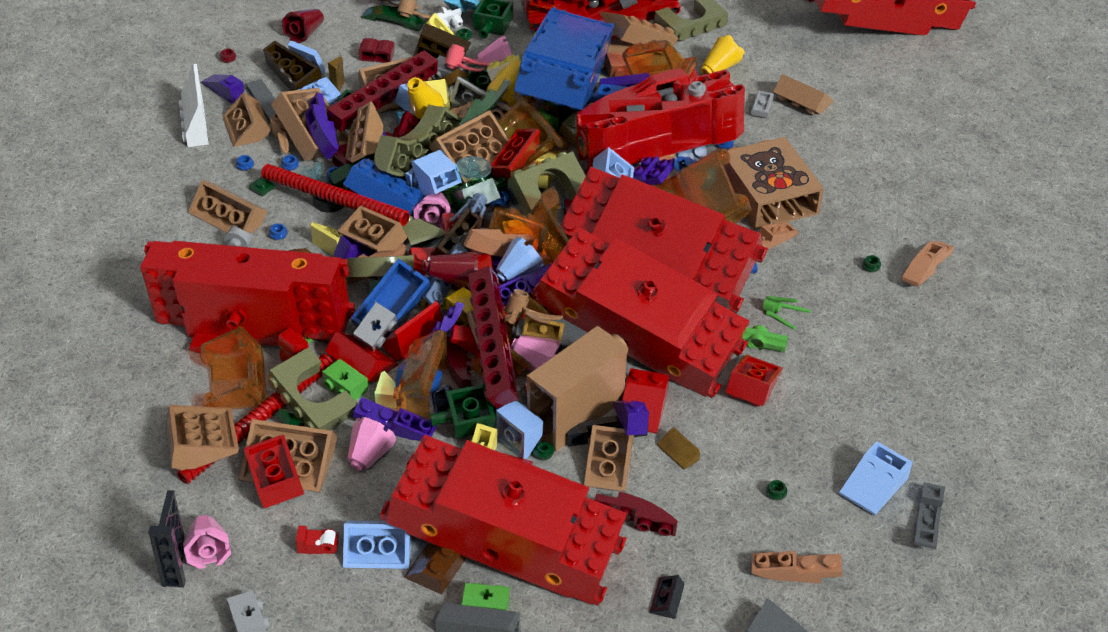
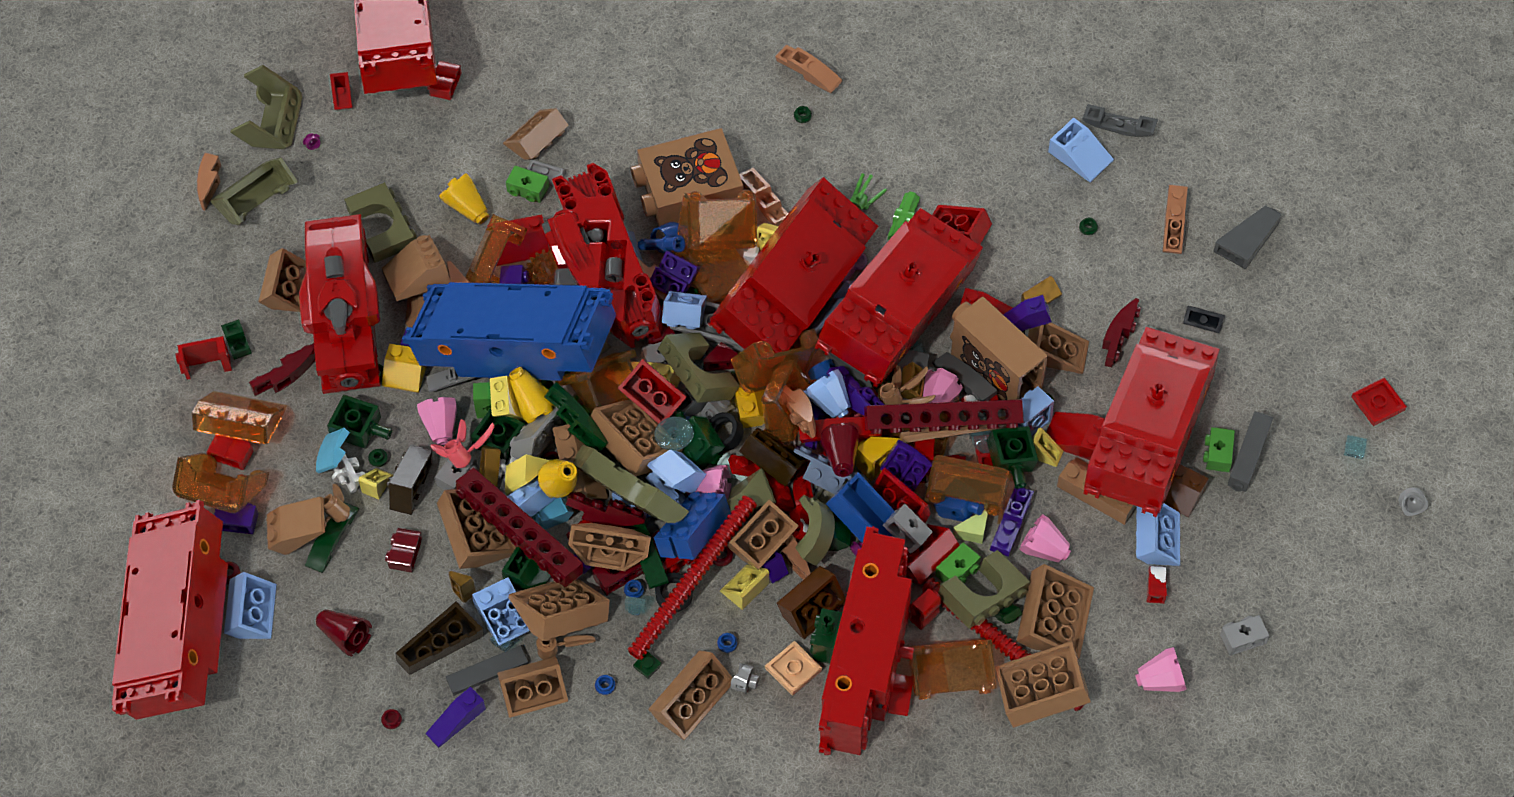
camera: 85 degrees left, 15 degrees up
(168, 544) = (1201, 690): black fence -> none
(192, 111) = (519, 735): white slope -> none
(273, 471) = (1083, 618): red slope -> none
(290, 162) = (608, 631): blue plate -> none
(307, 53) = (424, 620): light blue plate -> none
(320, 128) = (586, 589): dark purple slope -> none
(476, 204) = (730, 432): sand blue plant -> none
(697, 89) = (598, 208): light grey plate -> none
(751, 86) = (527, 184): none -> bright green brick
(848, 43) = (447, 80): none -> red brick

